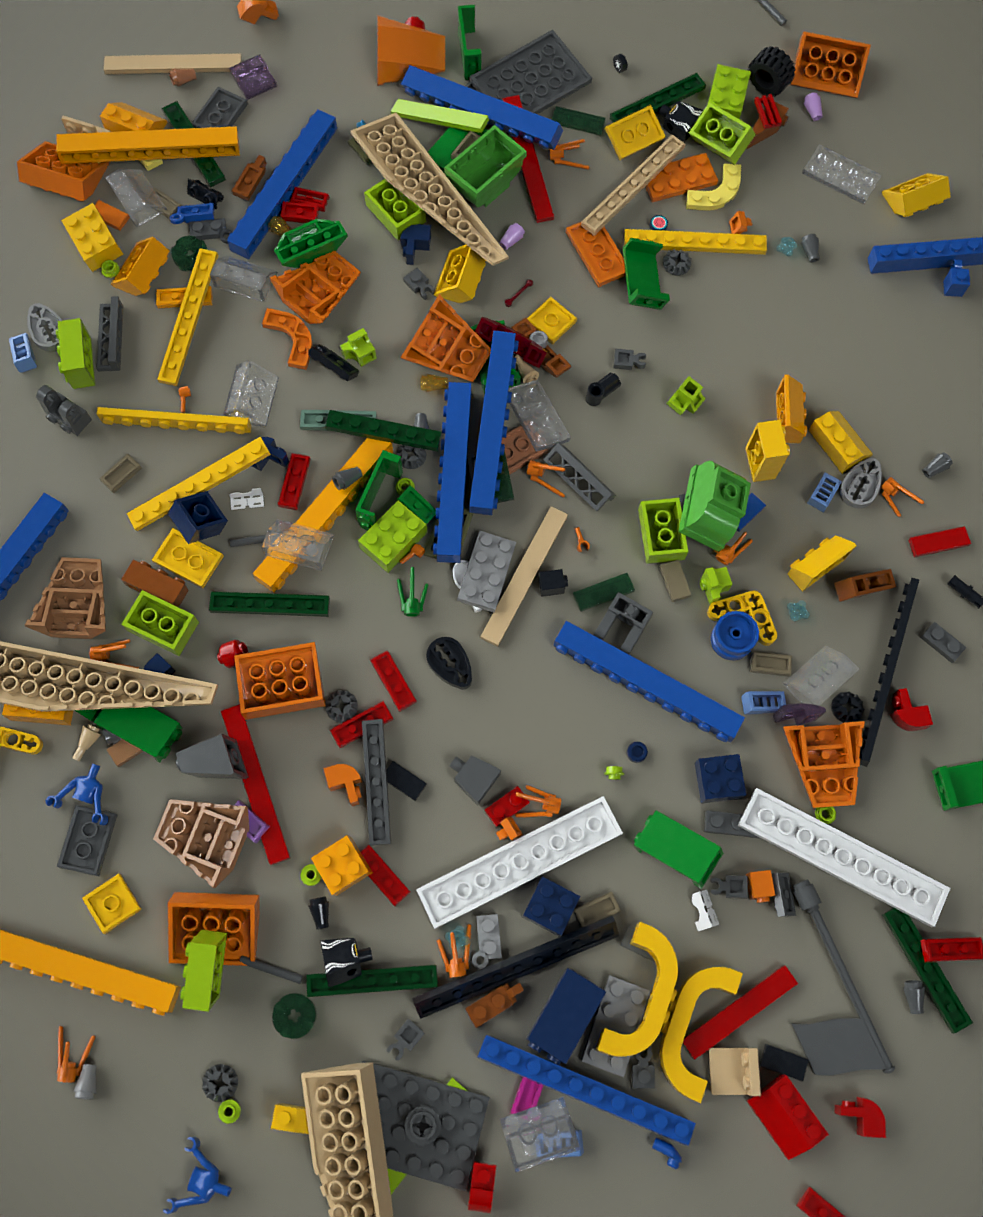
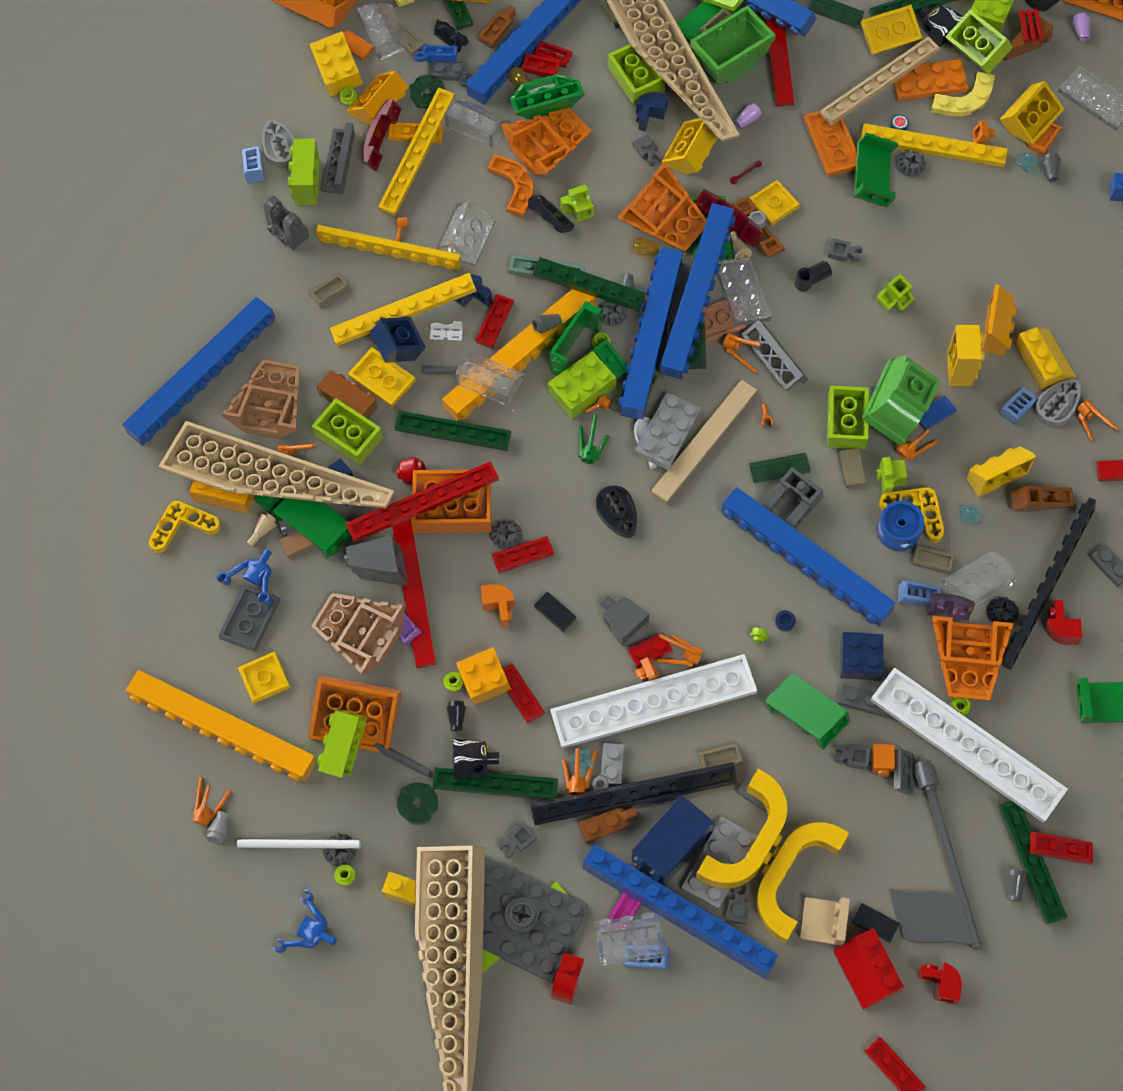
camera: 15 degrees right, 5 degrees down
(151, 284) = (387, 115): none -> dark red slope
(175, 1086) = (259, 843): none -> white piece
(248, 690) = (422, 501): none -> red plate
(376, 782) = (528, 607): dark grey plate -> none
(393, 681) = (560, 519): red tile -> none
(551, 906) = (676, 745): dark blue brick -> none
(552, 582) = (730, 451): black brick -> none
(558, 153) = (809, 40): orange plant -> none
(669, 1150) = (750, 979): blue arm -> none
(704, 921) = (822, 783): white piece -> none
(739, 1012) = (841, 870): red tile -> none
(783, 197) = (1031, 112): none -> yellow slope
(798, 219) = (1046, 139): none -> orange tile

